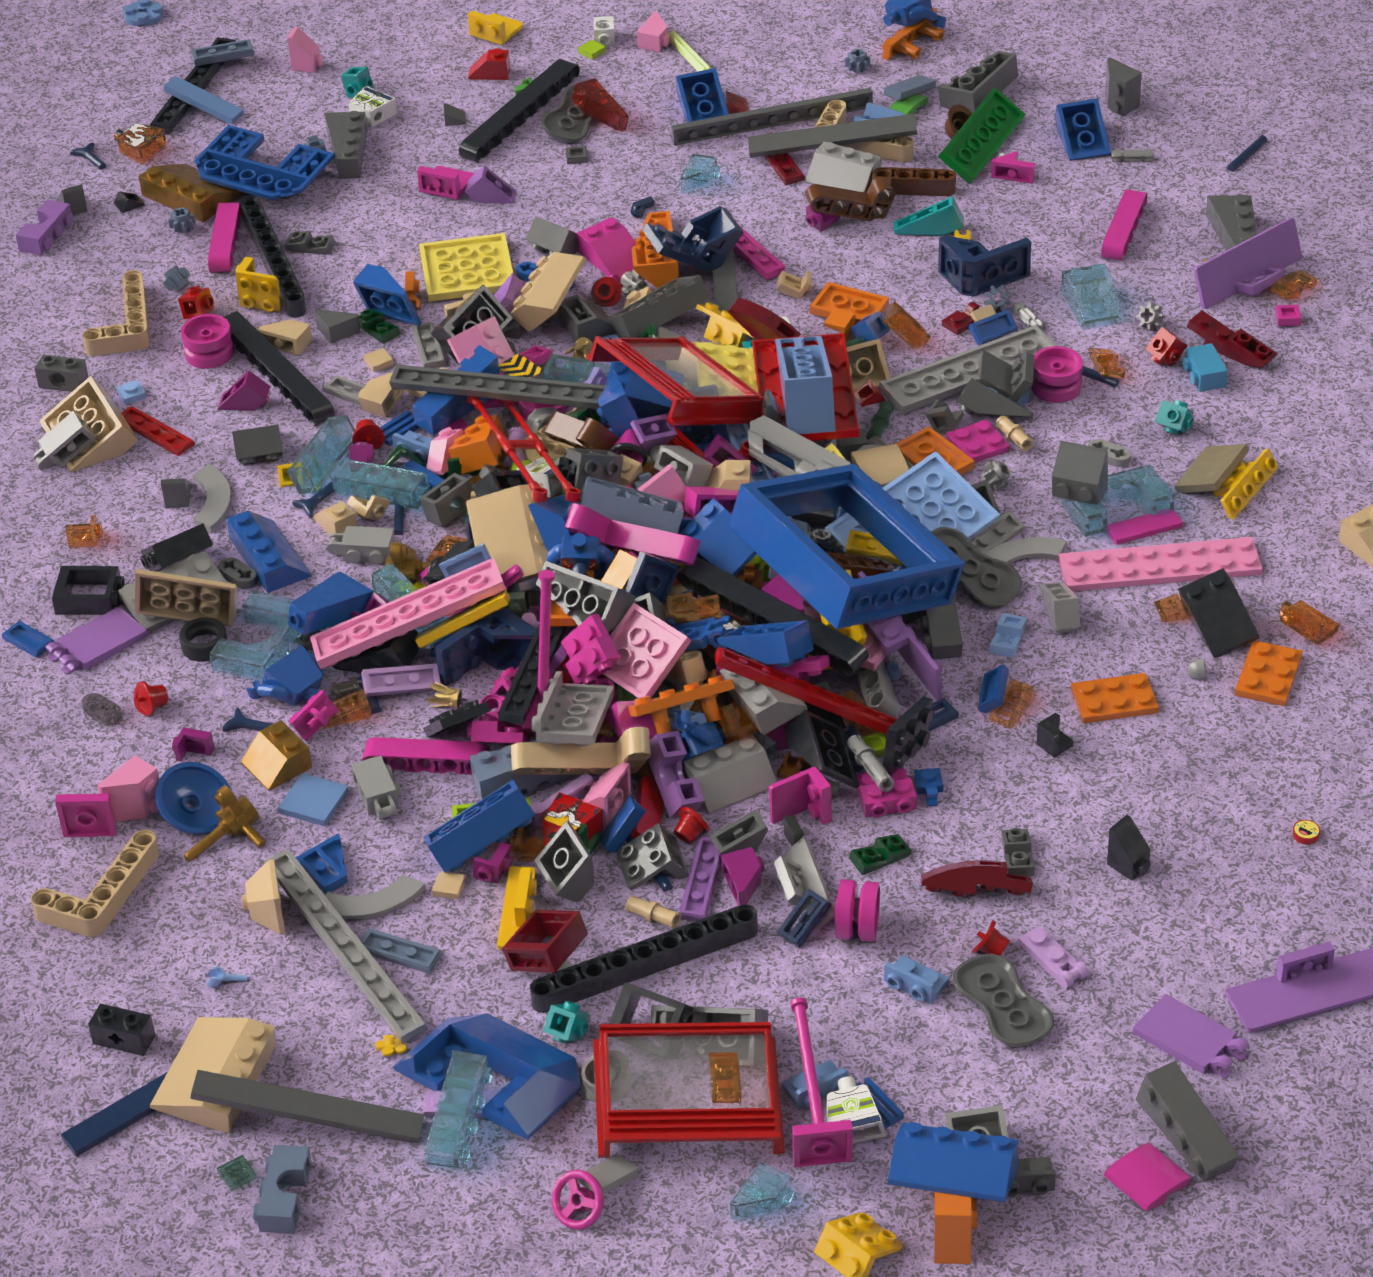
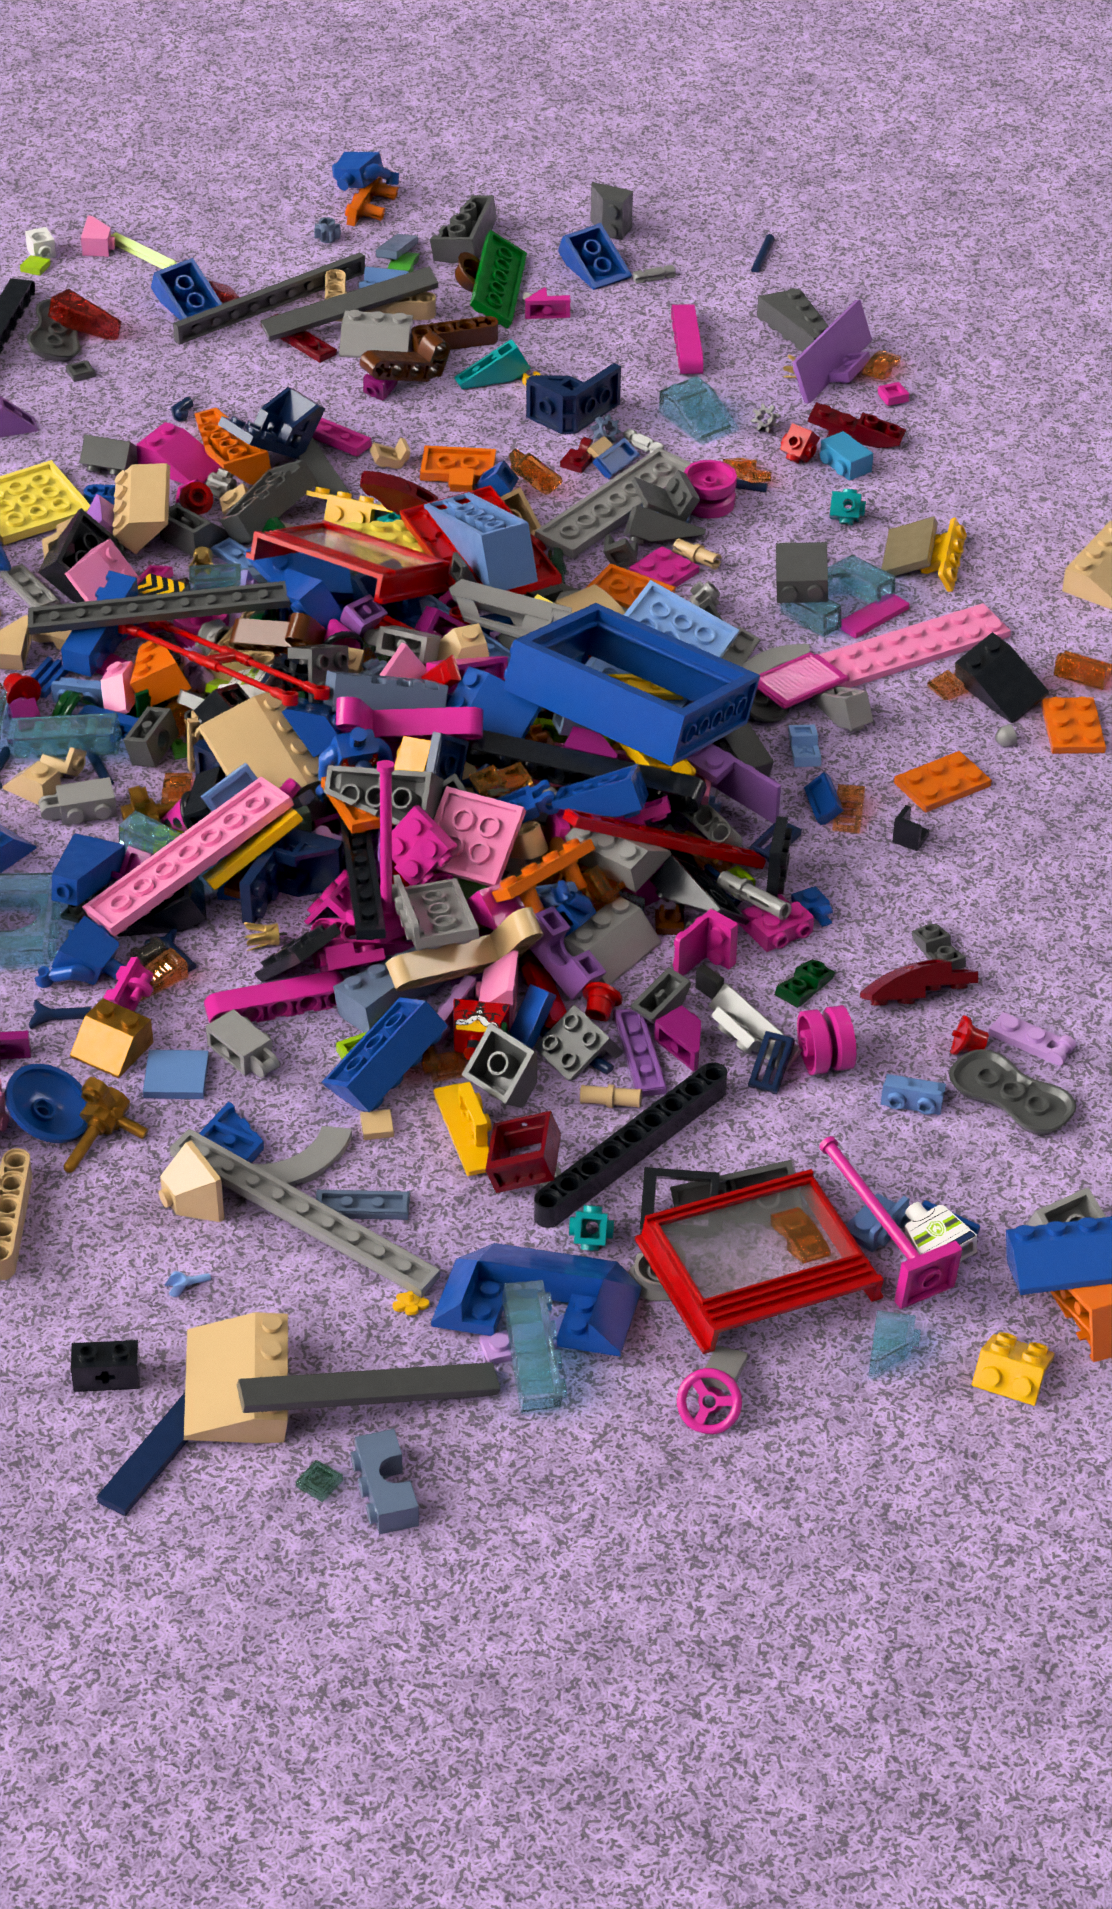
camera: 25 degrees left, 0 degrees up
(399, 679) = (205, 928): lavender plate -> none
(493, 870) = (416, 1097): magenta bracket -> none
(691, 501) = (445, 672): none -> red tile
(699, 173) = (227, 364): clear light blue slope -> none
(1031, 572) = (799, 679): none -> window
(1128, 849) = (1050, 918): black slope -> none

